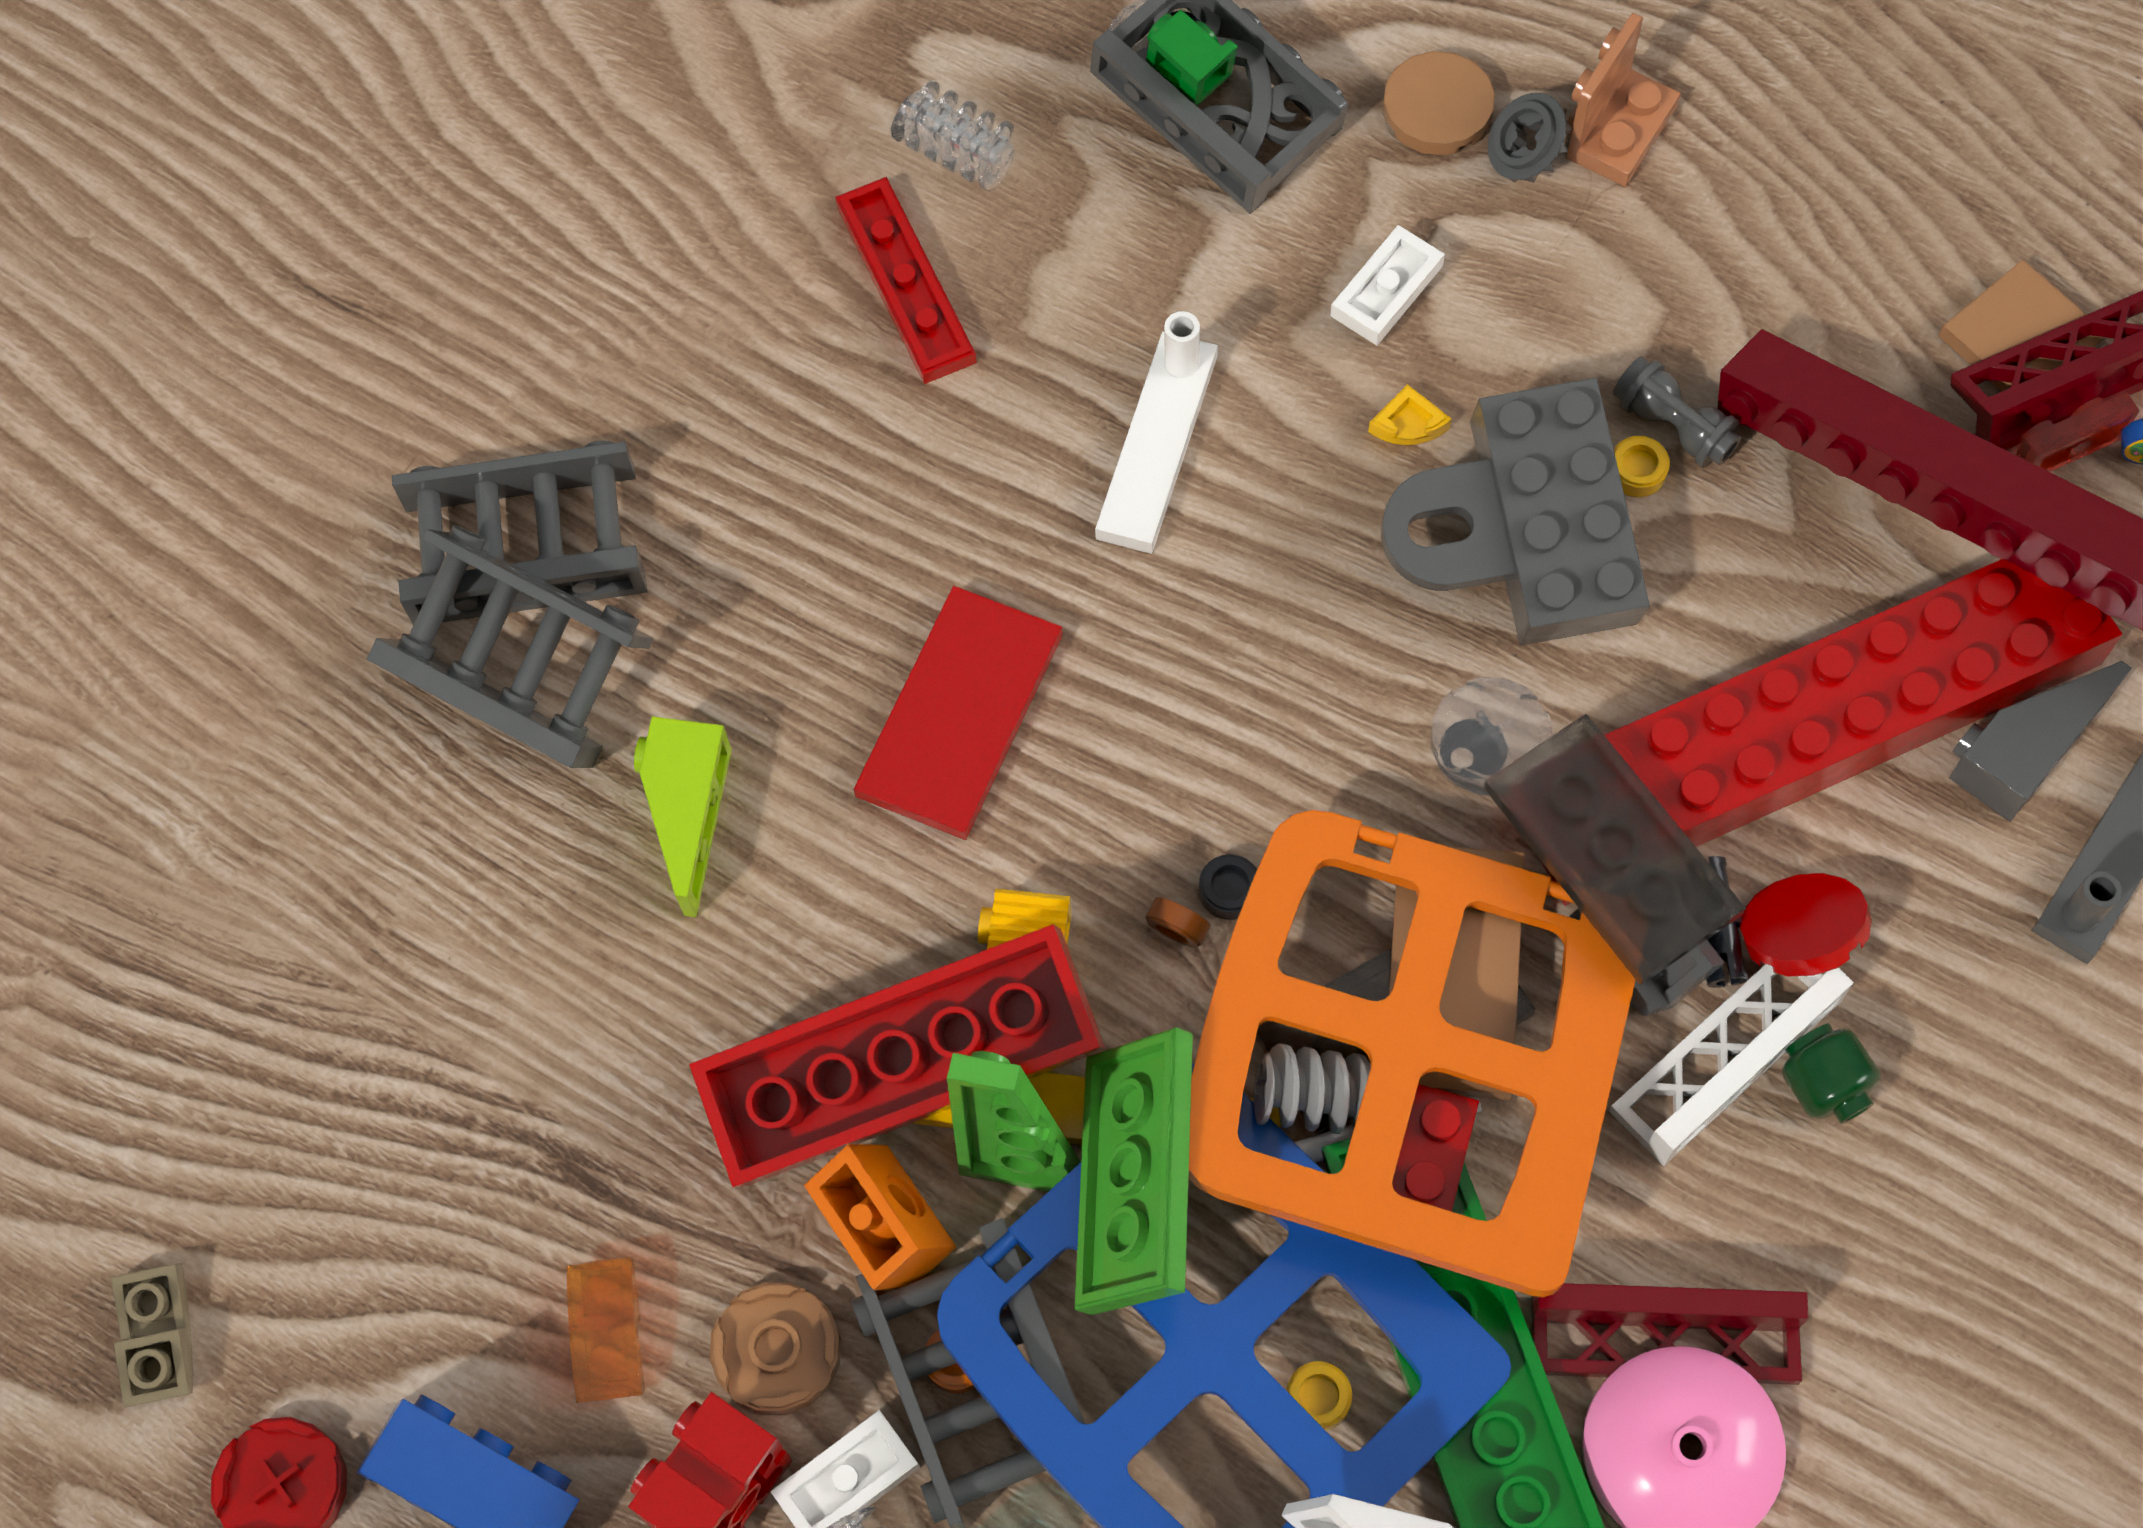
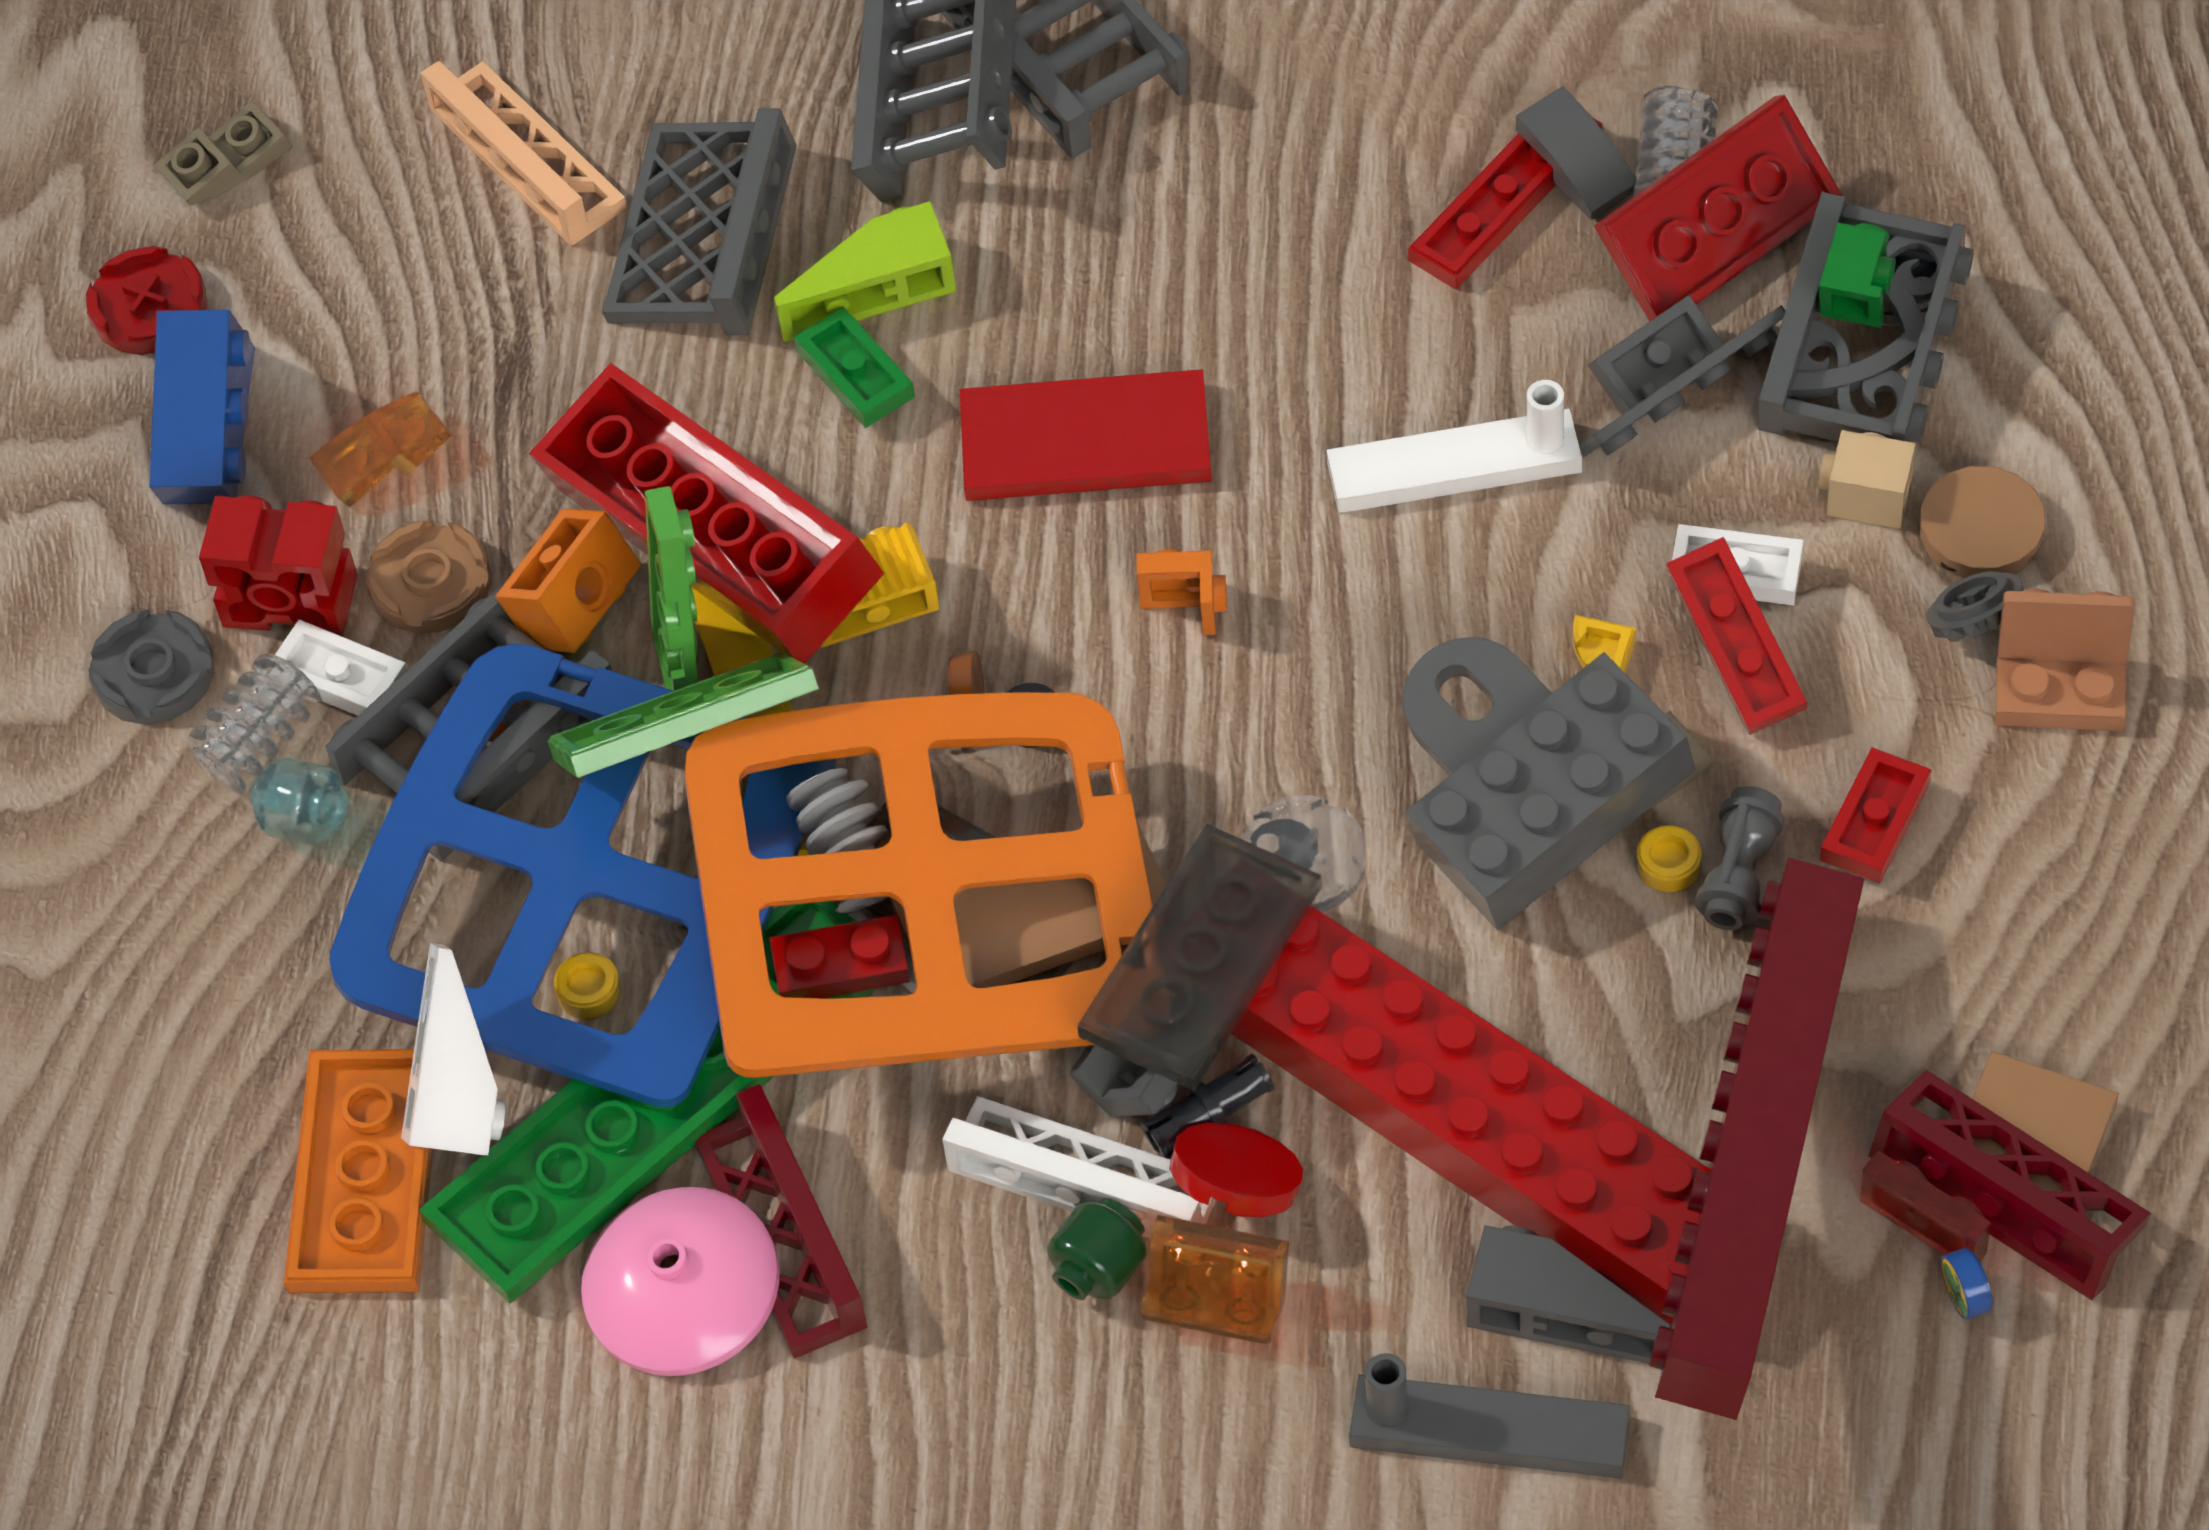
camera: 65 degrees right, 10 degrees down
(342, 1060) = (519, 161): none -> light nougat fence
(555, 884) = (747, 236): none -> dark grey fence
(774, 866) = (854, 367): none -> green plate
(909, 201) = (1578, 150): none -> dark grey slope
(1044, 131) = (1718, 209): none -> red tile
(1162, 704) = (1182, 580): none -> orange bracket
(1167, 238) = (1661, 360): none -> dark grey bracket
(1361, 153) = (1868, 478): none -> tan brick
(1468, 312) = (1736, 636): none -> red plate
(1682, 300) = (1875, 815): none -> red plate
(1909, 993) = (1215, 1280): none -> clear orange bracket

